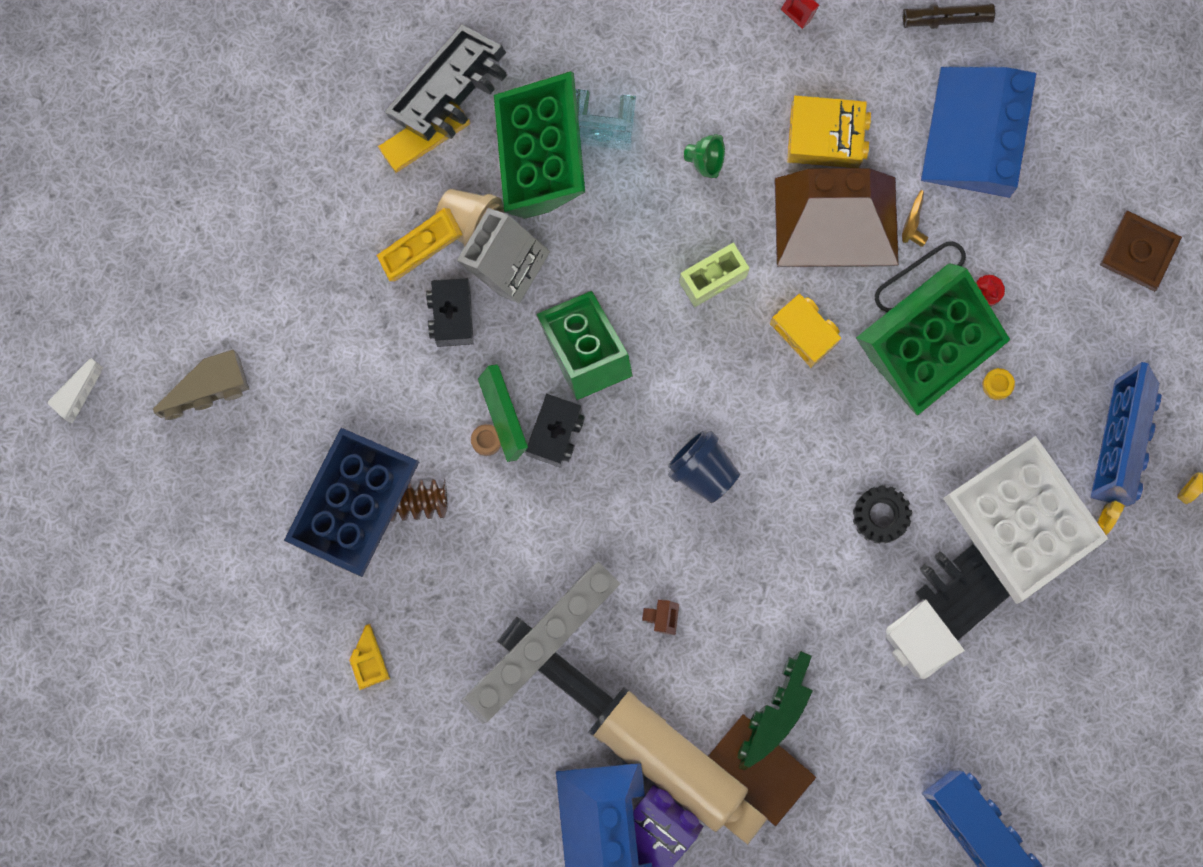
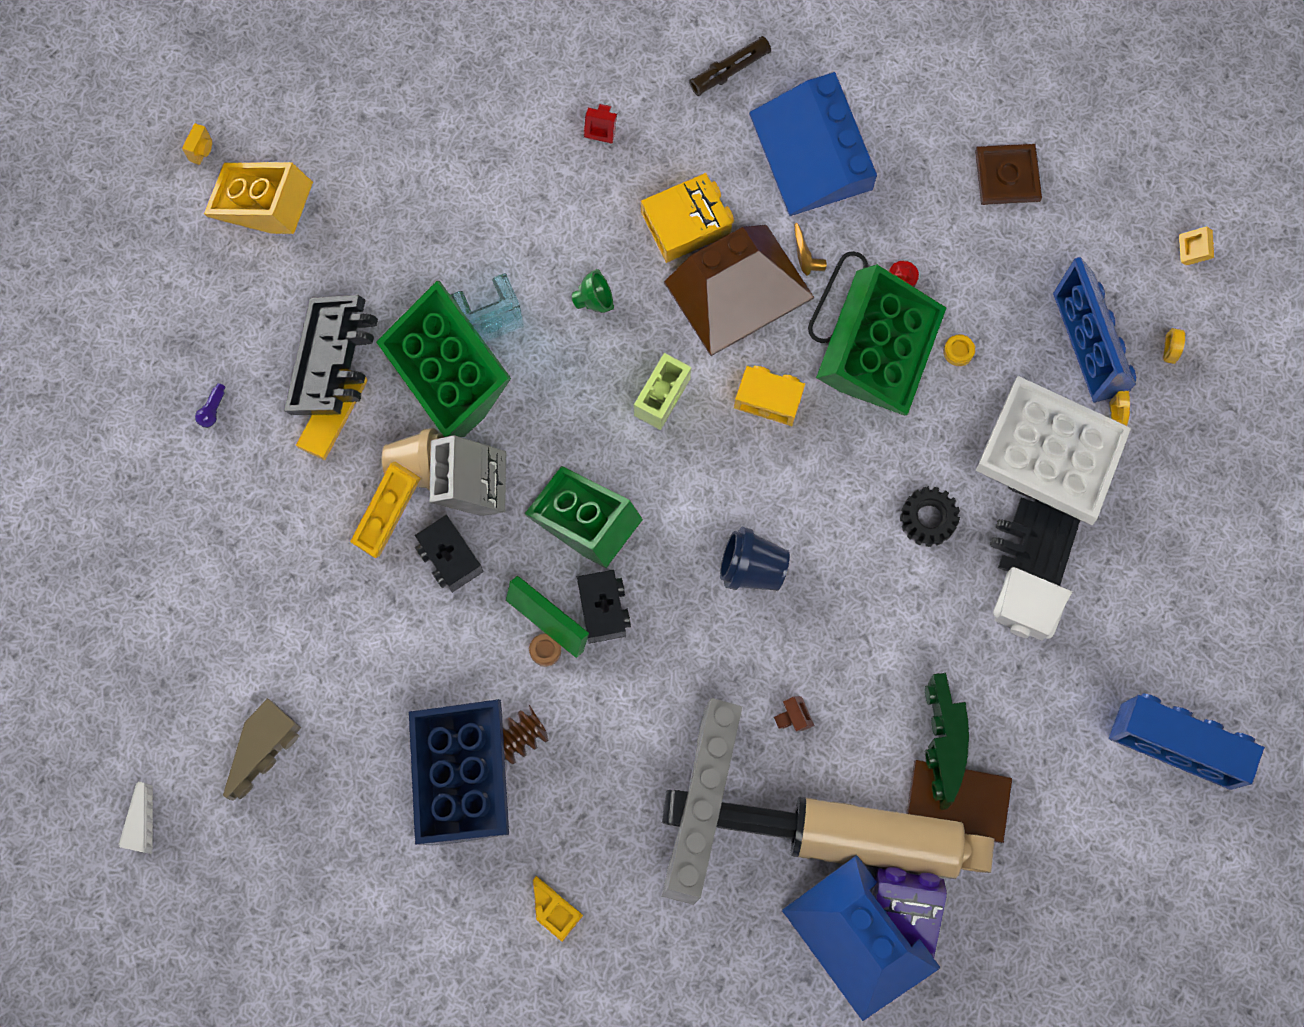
camera: 30 degrees left, 5 degrees down
(318, 78) = (207, 415): none -> dark purple piece

